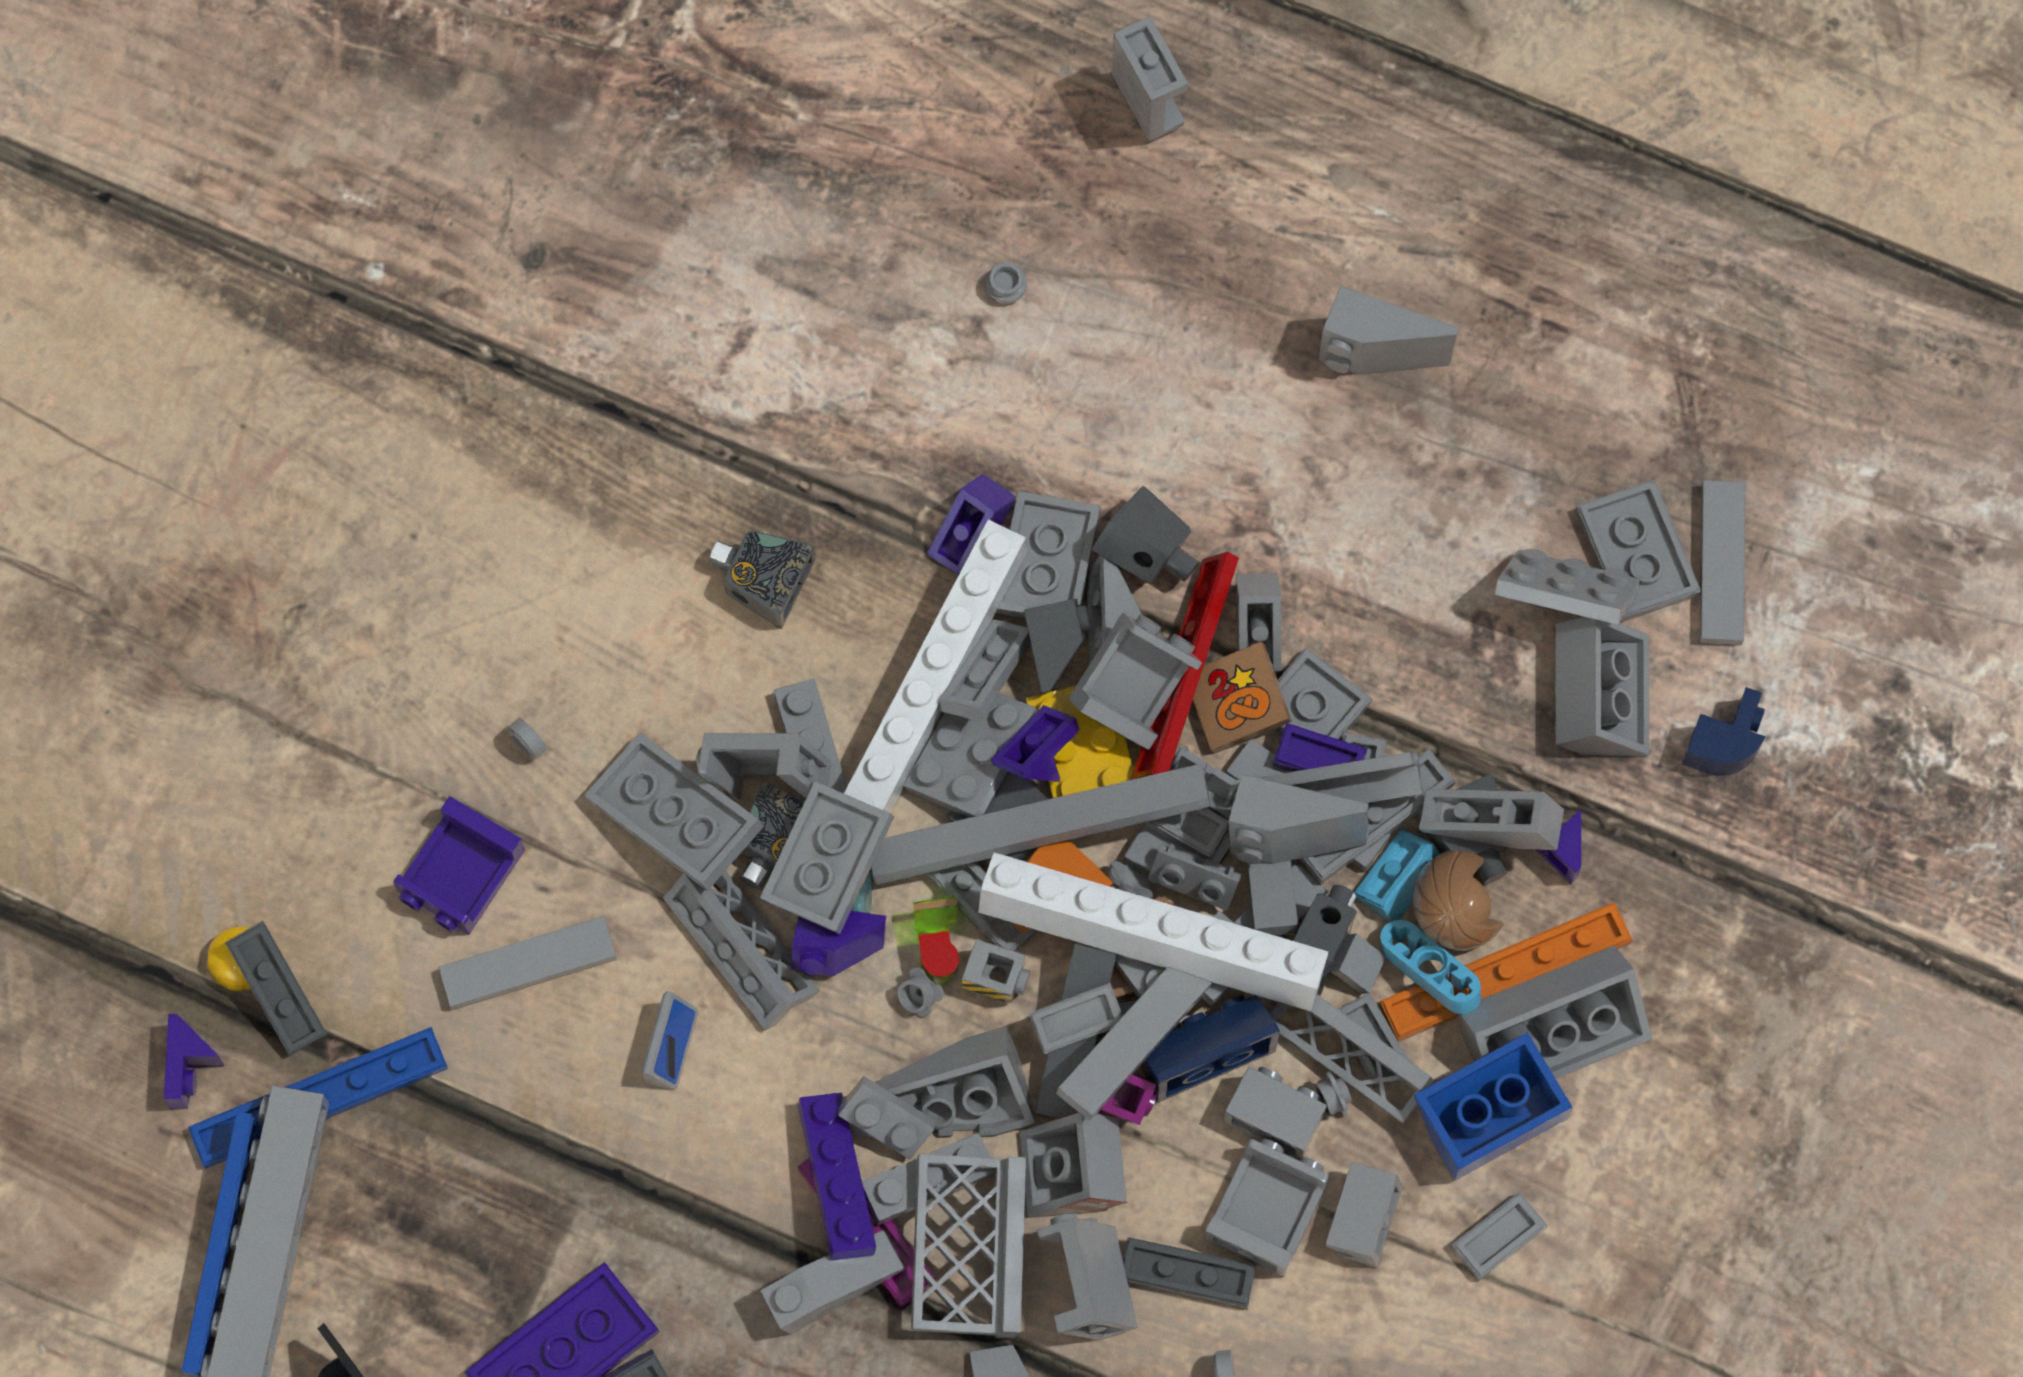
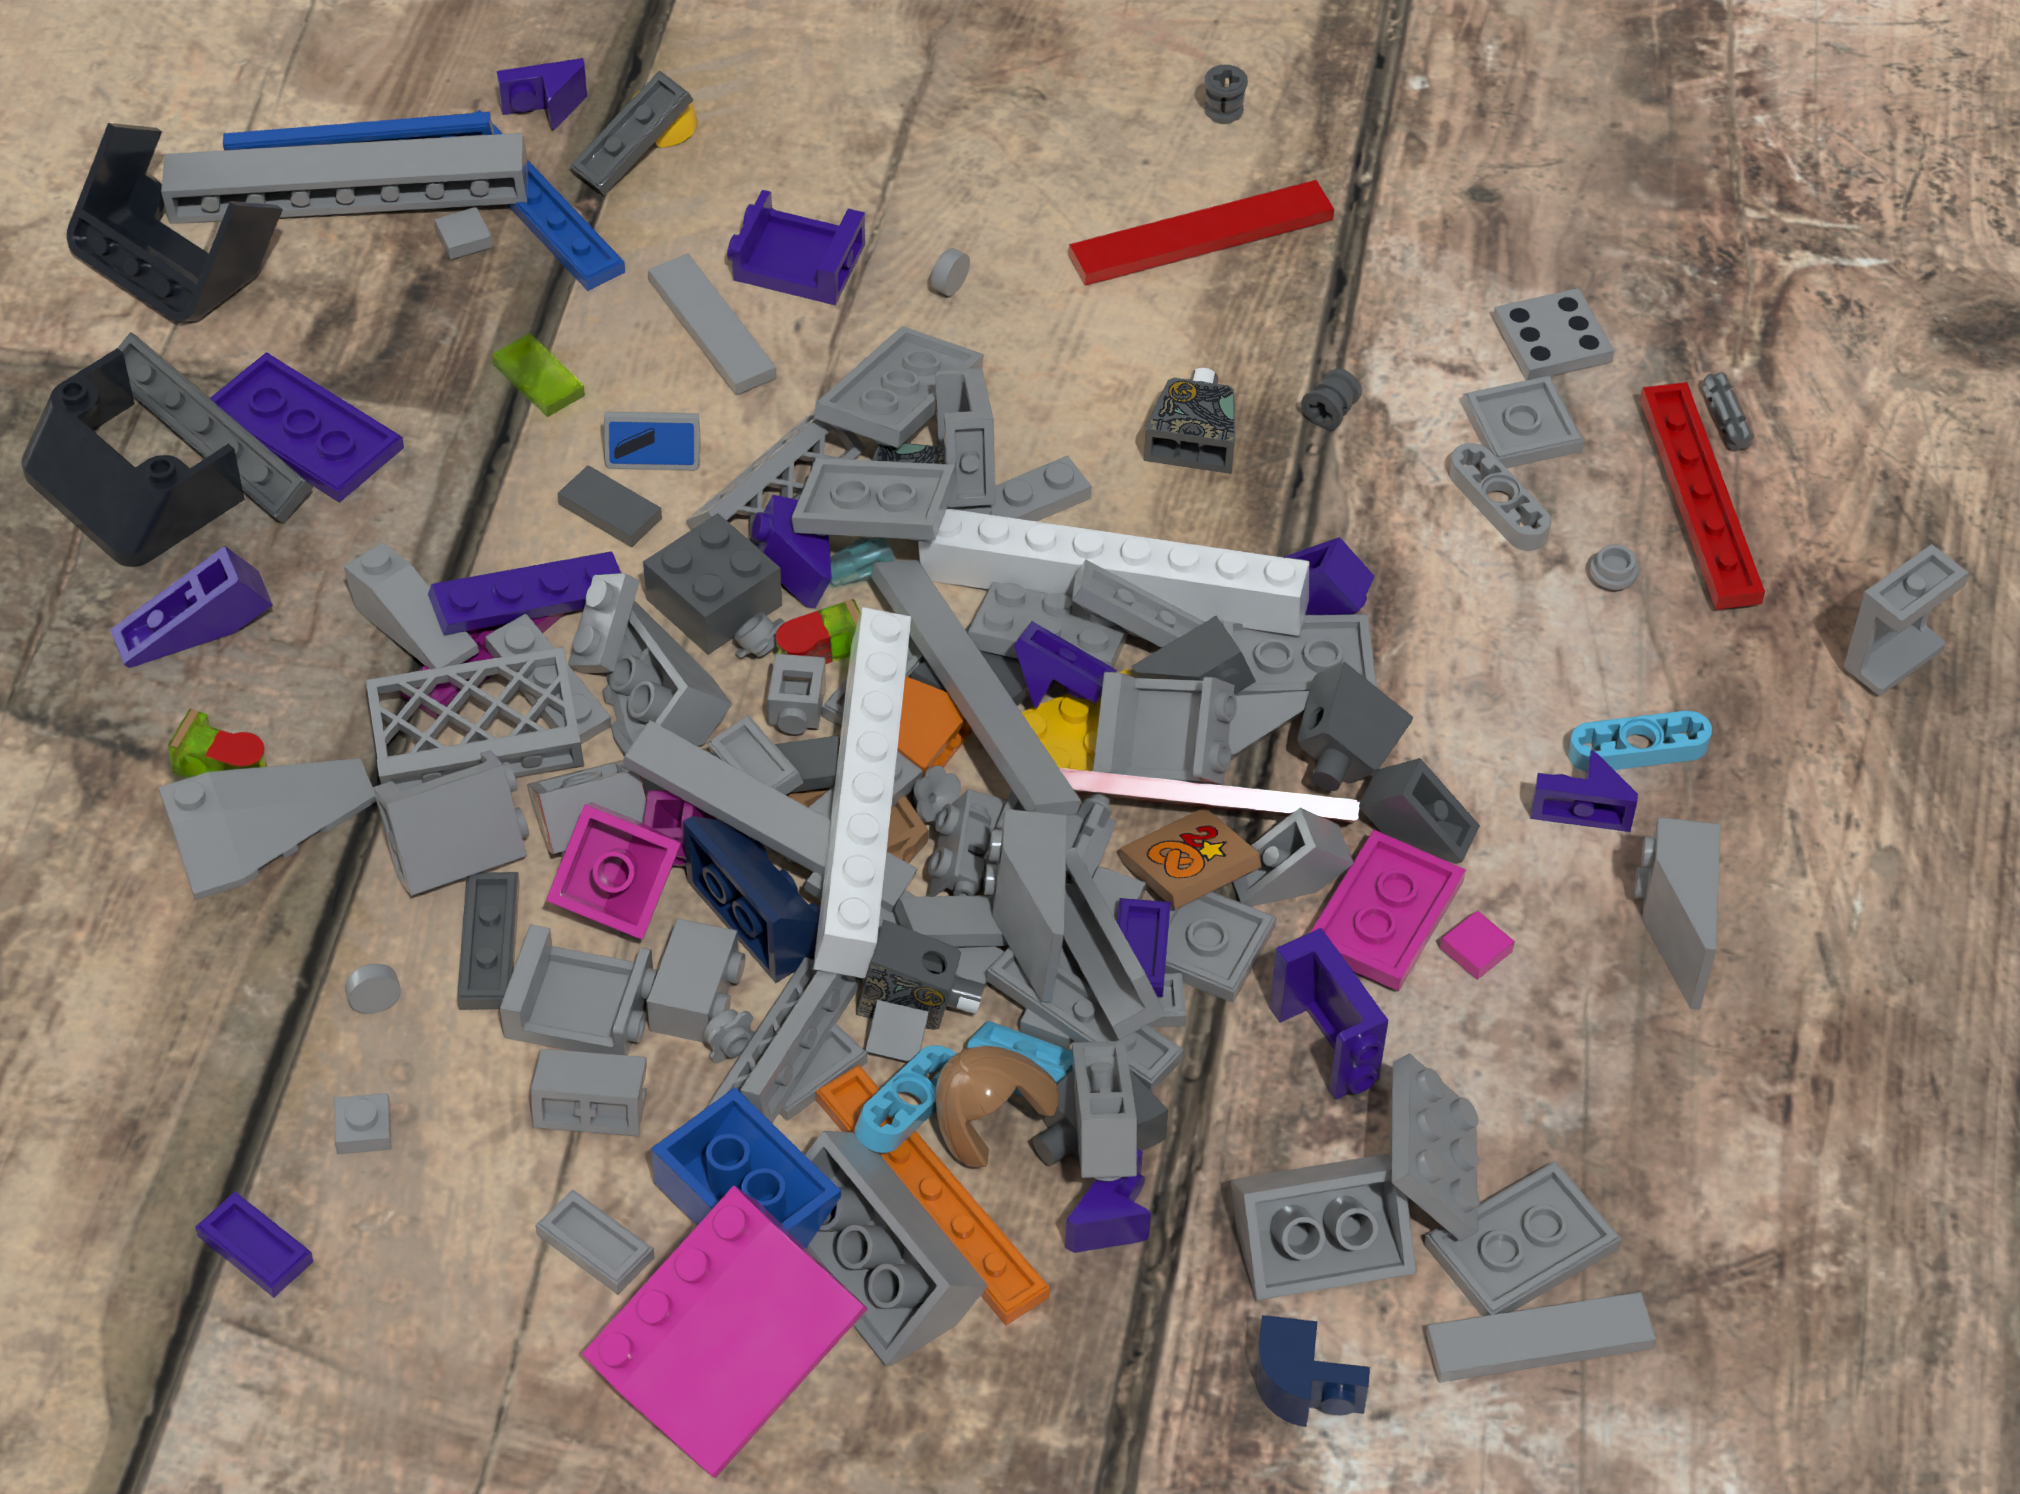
camera: 75 degrees right, 20 degrees down
(349, 1169) = (463, 233): none -> light grey tile
(357, 431) = (1218, 93): none -> dark grey bush
(525, 510) = (1200, 232): none -> red tile
(551, 1129) = (538, 375): none -> clear neon green tile
(727, 250) = (1553, 334): none -> light grey tile
(730, 1093) = (609, 505): none -> dark grey tile
(764, 453) = (1331, 399): none -> dark grey bush
(822, 306) = (1523, 422): none -> light grey tile
(854, 138) = (1728, 411): none -> dark grey axle
(856, 1018) = (712, 582): none -> dark grey brick
(928, 328) = (1501, 515): none -> light grey beam
(944, 189) = (1702, 496): none -> red plate
(1168, 1153) = (614, 870): none -> dark pink slope
(1203, 293) = (1652, 726): none -> medium azure beam
(1230, 510) = (1419, 810): none -> dark grey slope
(1244, 371) = (1597, 801): none -> dark purple slope
(1318, 561) = (1389, 908): none -> dark pink plate
(1362, 503) = (1477, 944): none -> dark pink tile
(1427, 620) = (1318, 980): none -> dark purple panel
(1630, 1145) = (724, 1331): none -> dark pink slope

